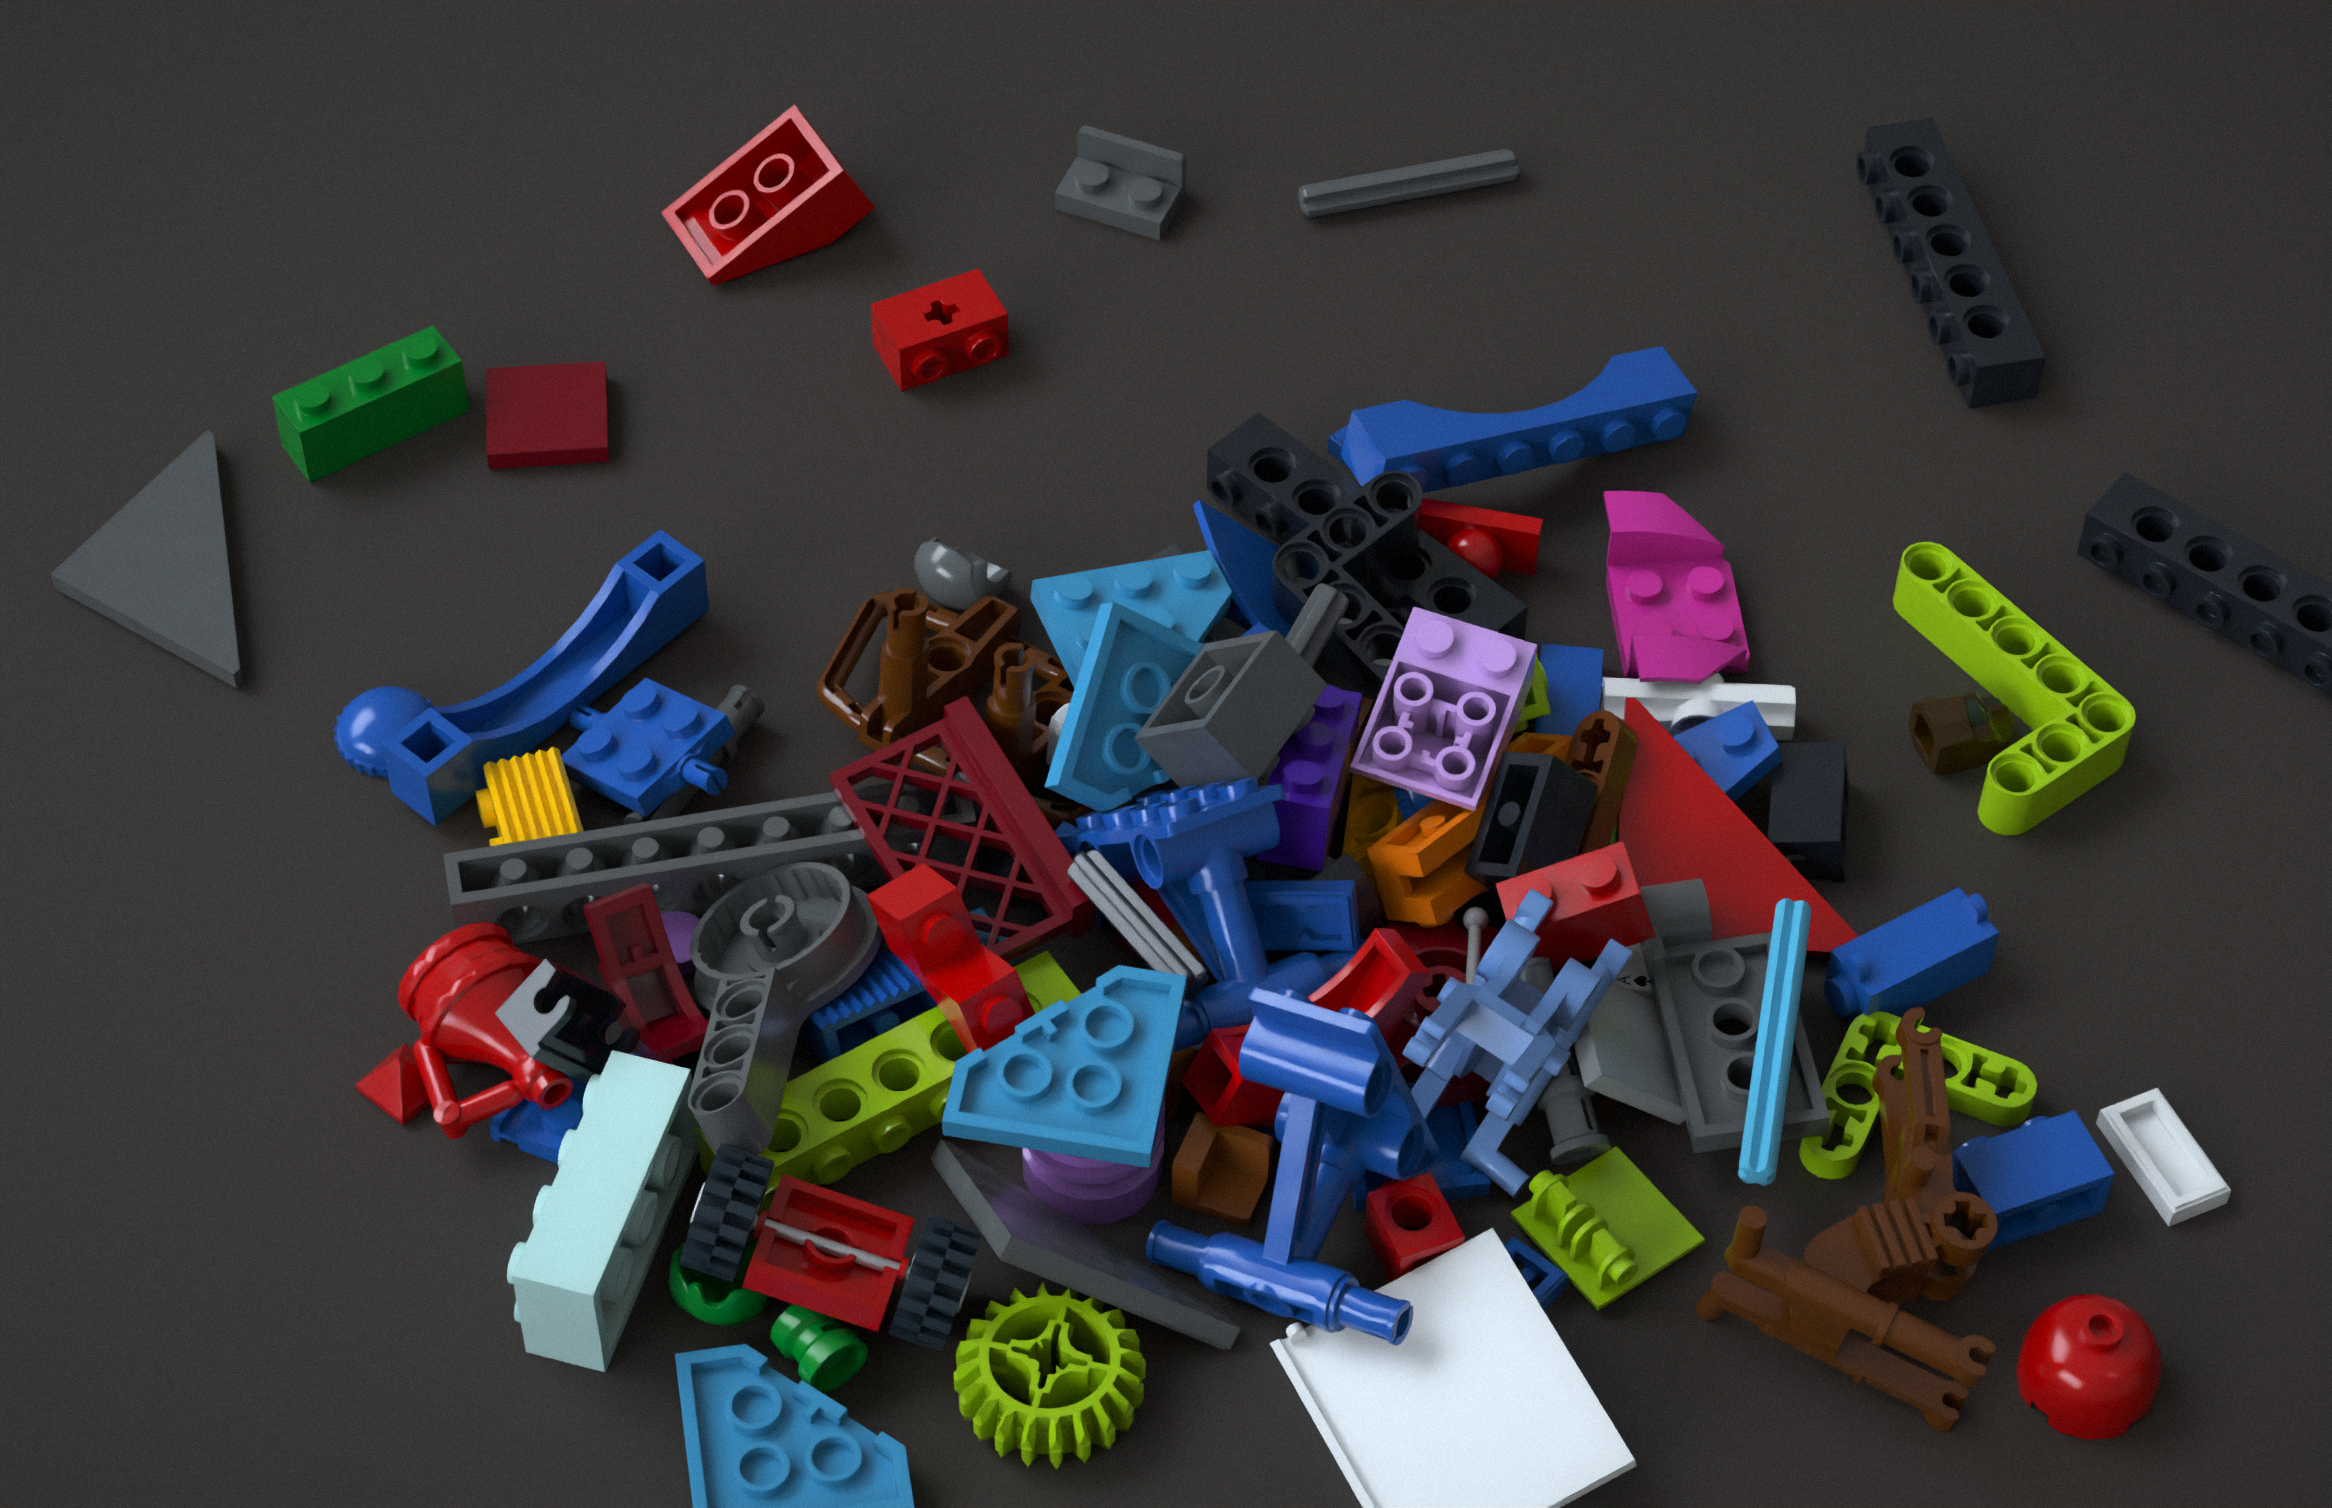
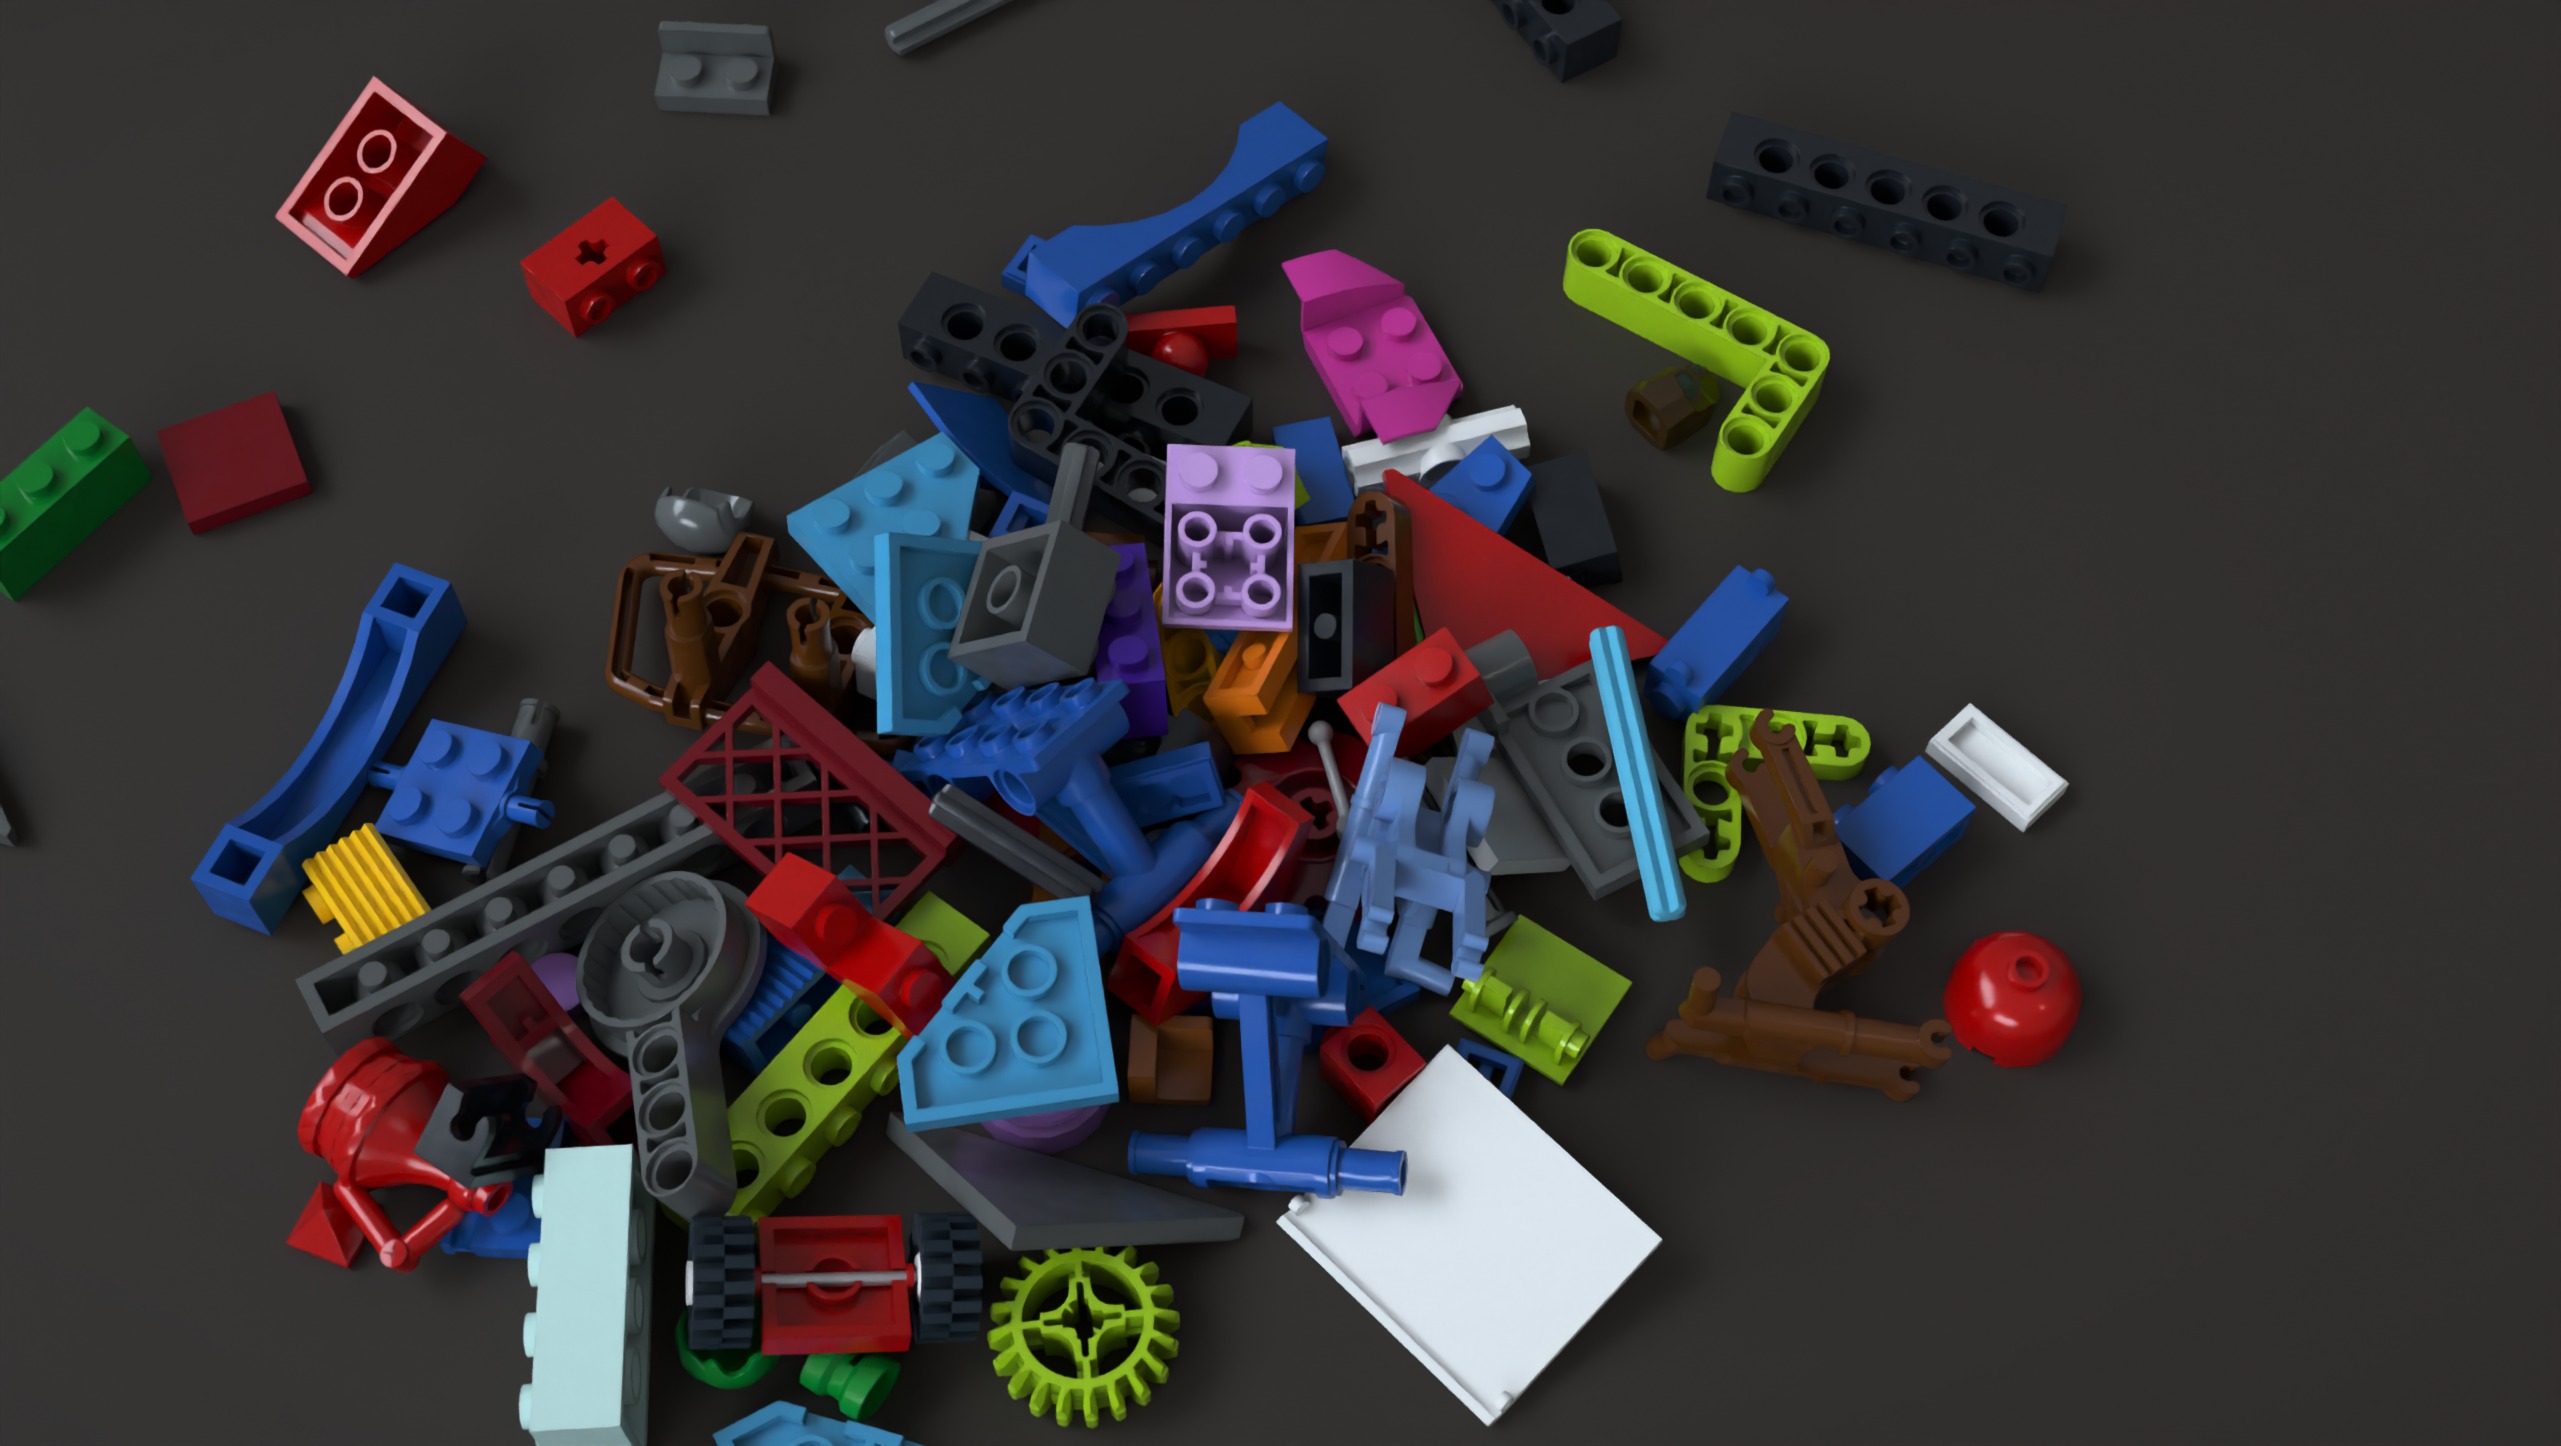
camera: 20 degrees left, 10 degrees up
(371, 721) = (175, 842): blue hat -> none

